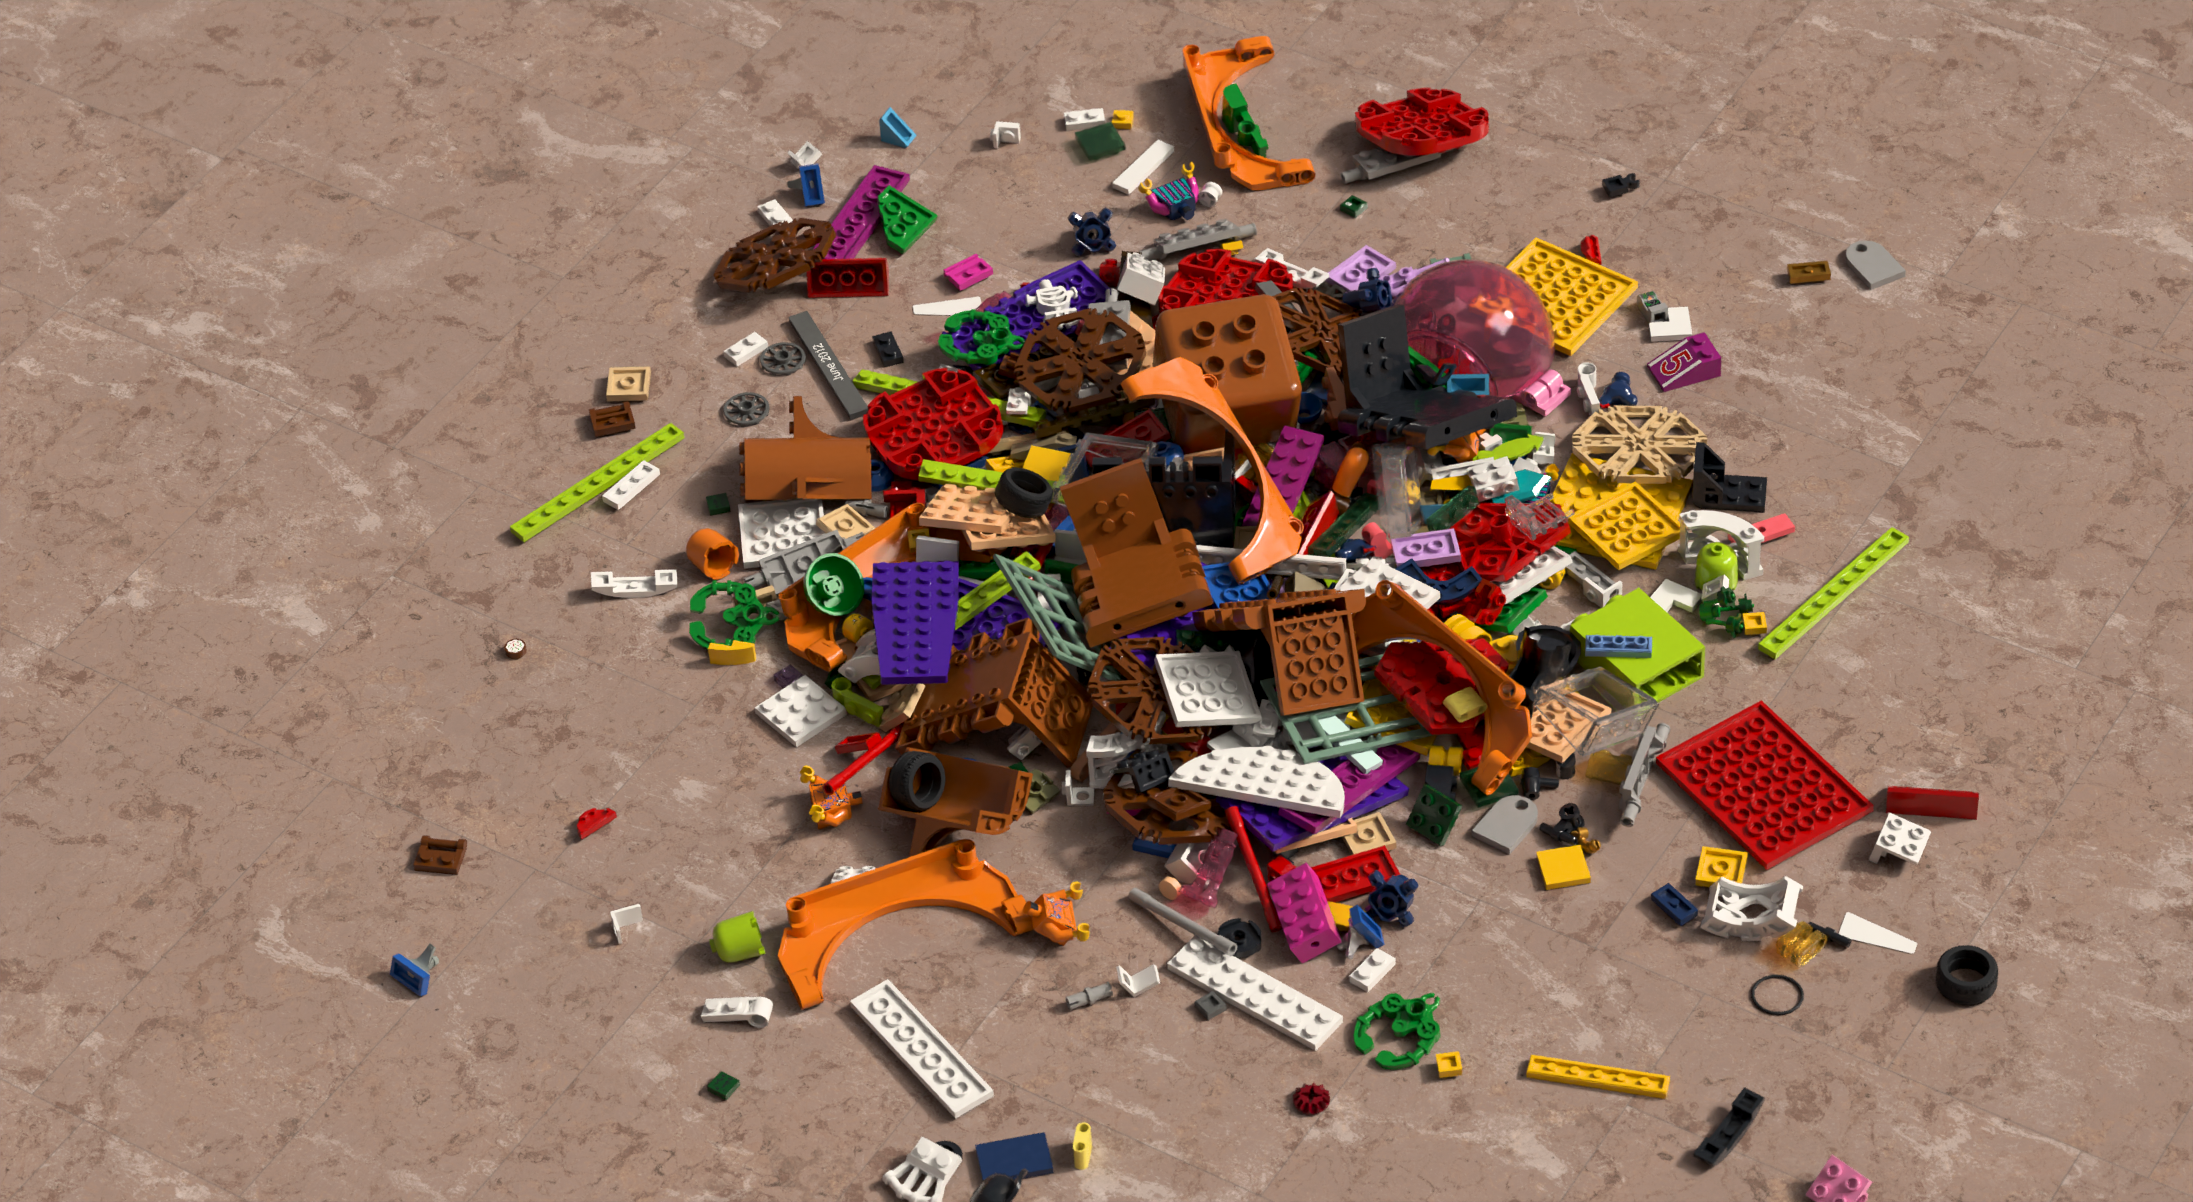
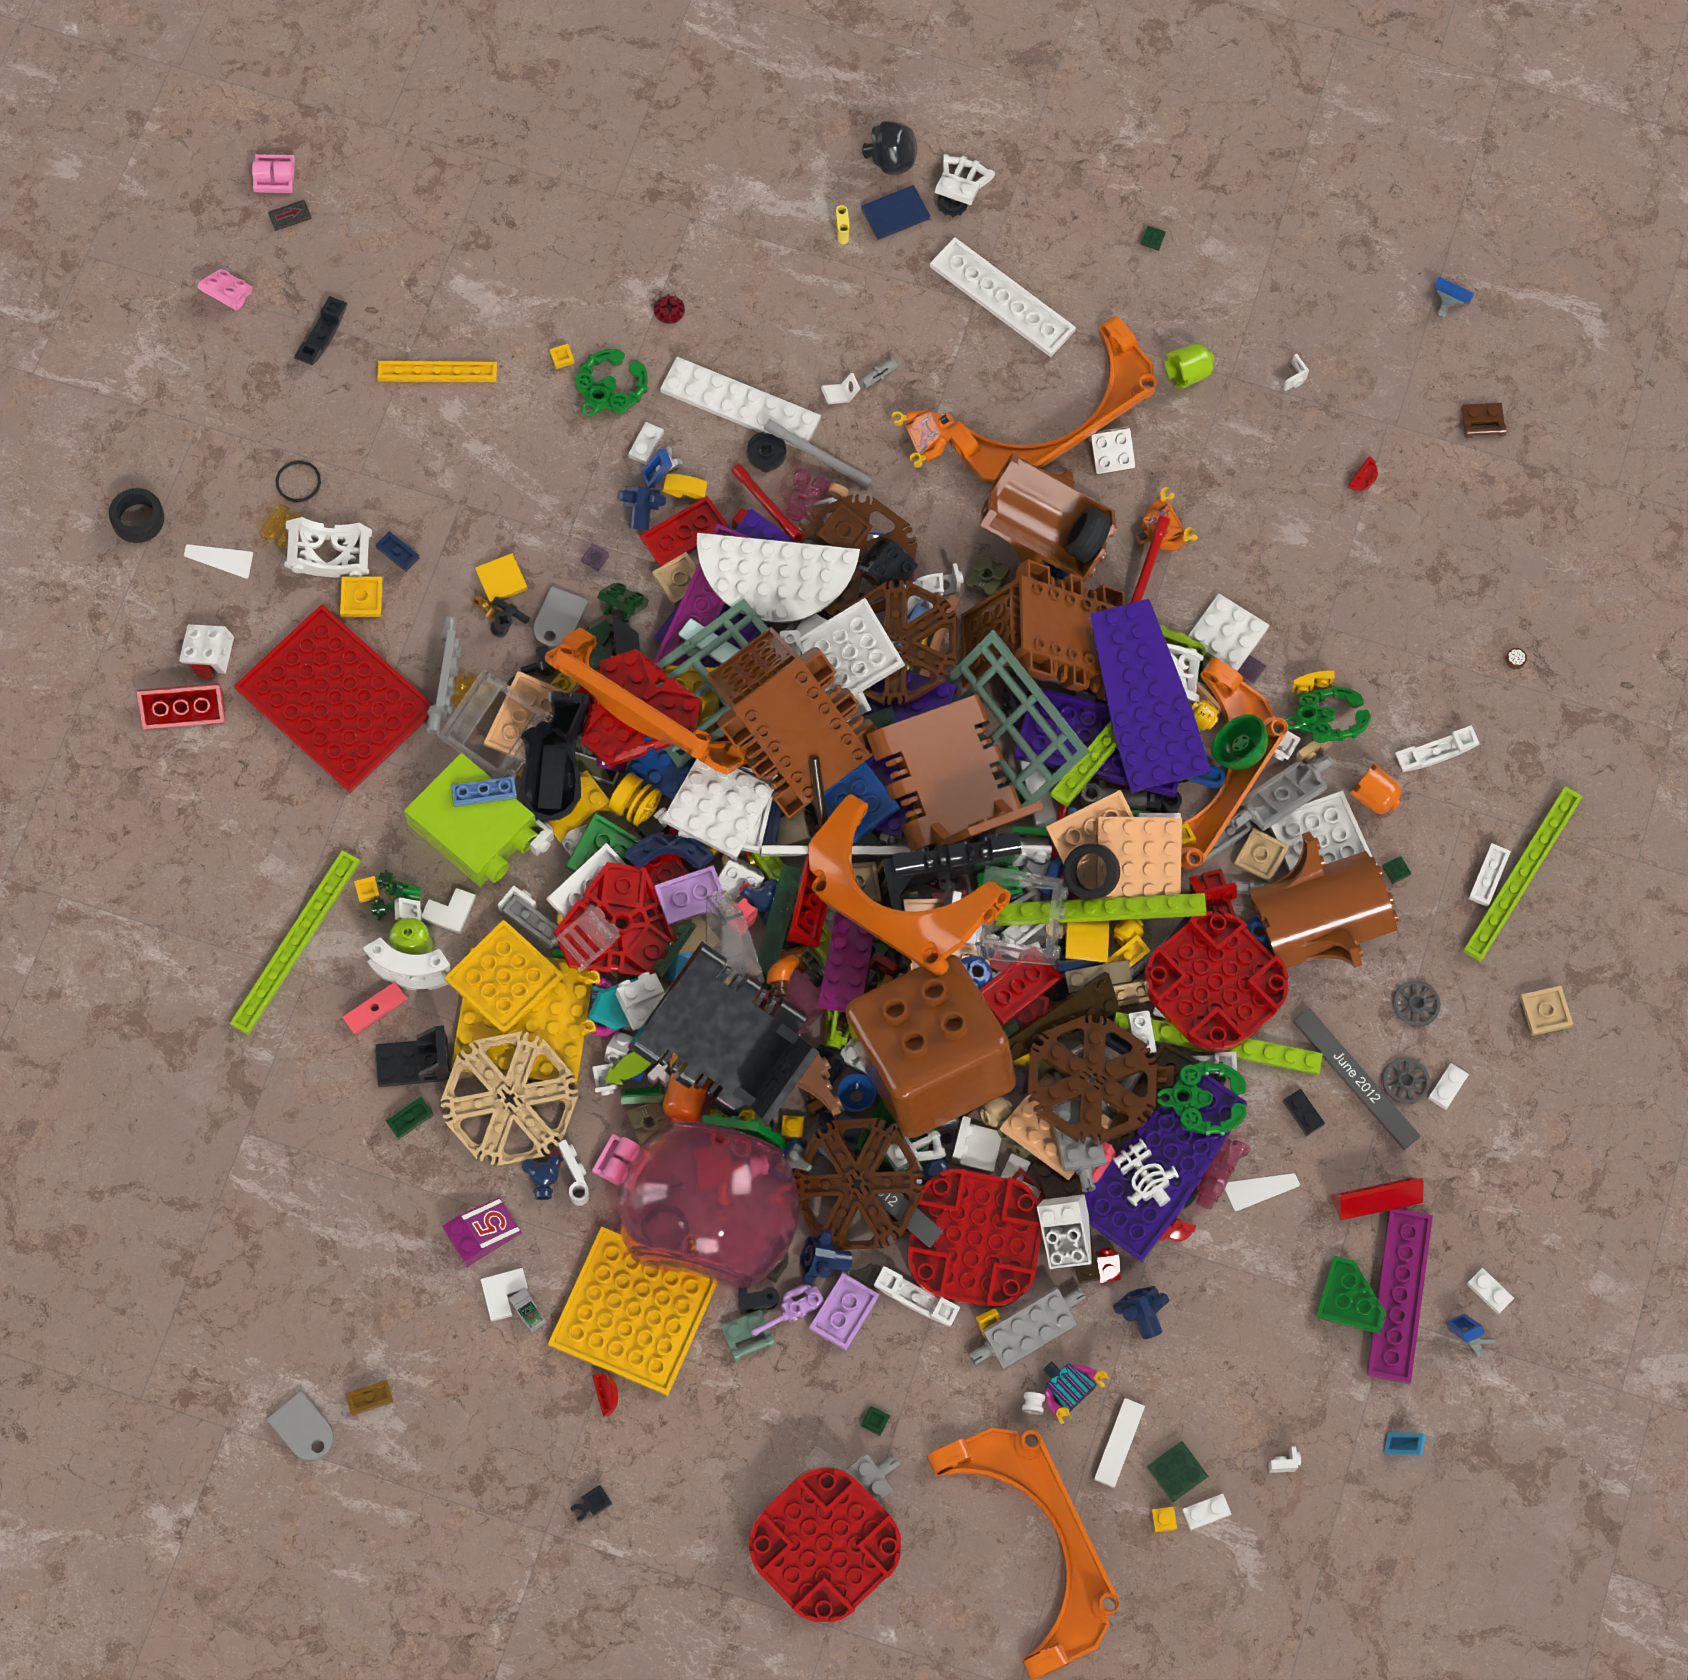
camera: 160 degrees right, 25 degrees up
(612, 419) = (1540, 955): reddish brown plate -> none
(754, 1009) = (1164, 304): white plate -> none
(766, 259) = (1450, 1191): reddish brown plate -> none
(805, 156) = (1492, 1383): white bracket -> none
(858, 743) = (1159, 592): red tile -> none
(968, 272) = (1256, 1236): dark pink plate -> none
(1210, 1005) = (774, 384): dark grey tile -> none
(1239, 120) = (1035, 1525): green plate -> none
(1304, 913) = (714, 473): dark pink brick -> none
(1434, 378) = (724, 1101): black bracket -> none
(1455, 867) = (595, 557): none -> clear purple plate
(1465, 704) = (612, 667): light yellow piece -> none
(1467, 802) = (602, 632): none -> dark green tile
(1470, 382) = (690, 1111): dark azure slope -> none
(1487, 604) = (621, 833): red cylinder -> none
(1740, 449) = (409, 1118): none -> dark green plate
(1832, 935) = (260, 545): black bar -> none

